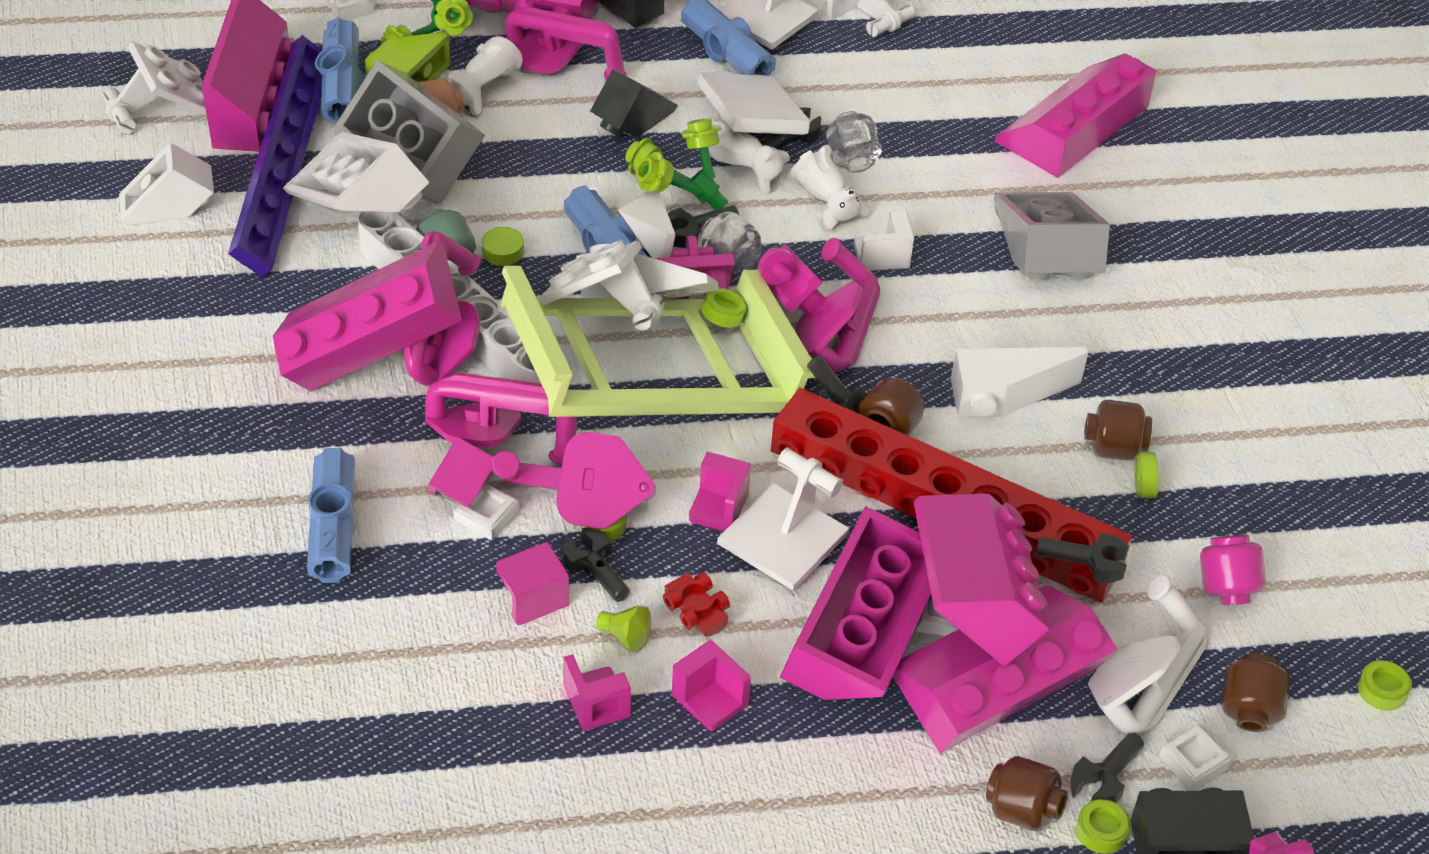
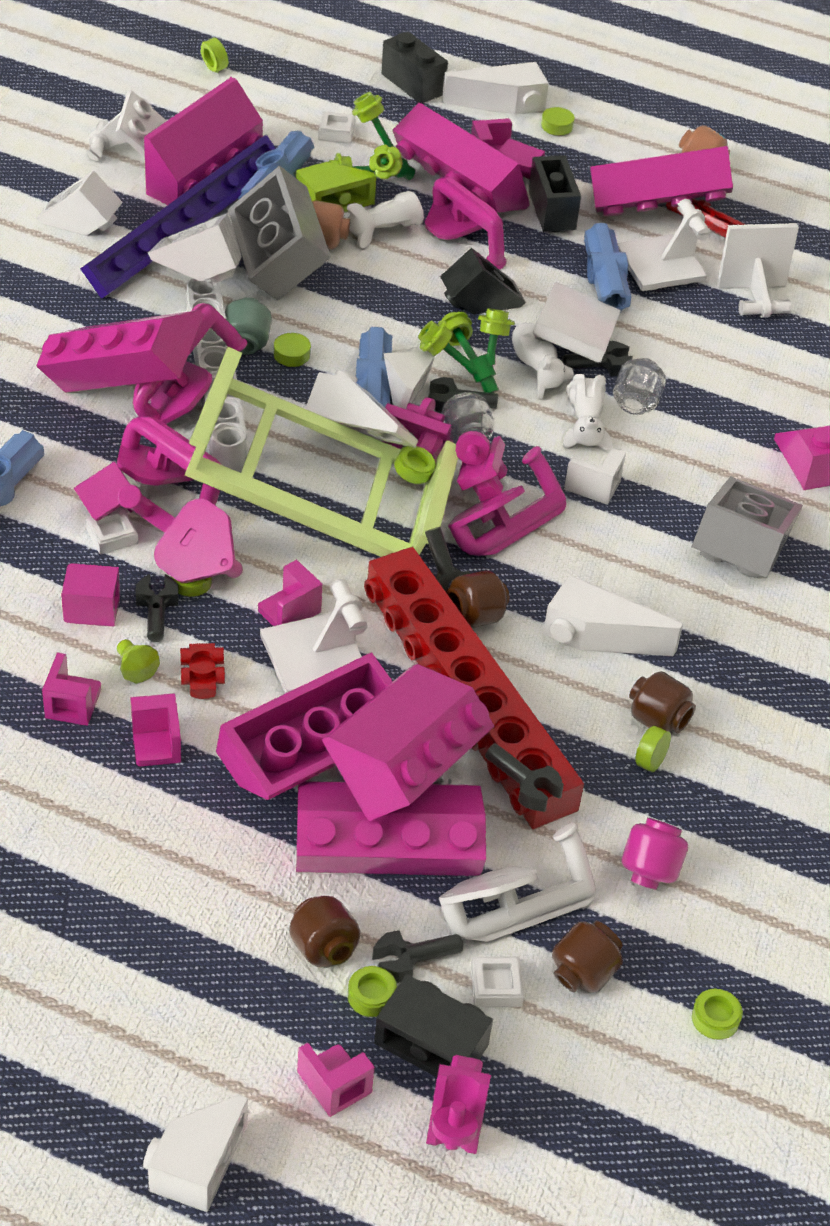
camera: 30 degrees right, 0 degrees up
(618, 275) = (325, 401): white plate -> none

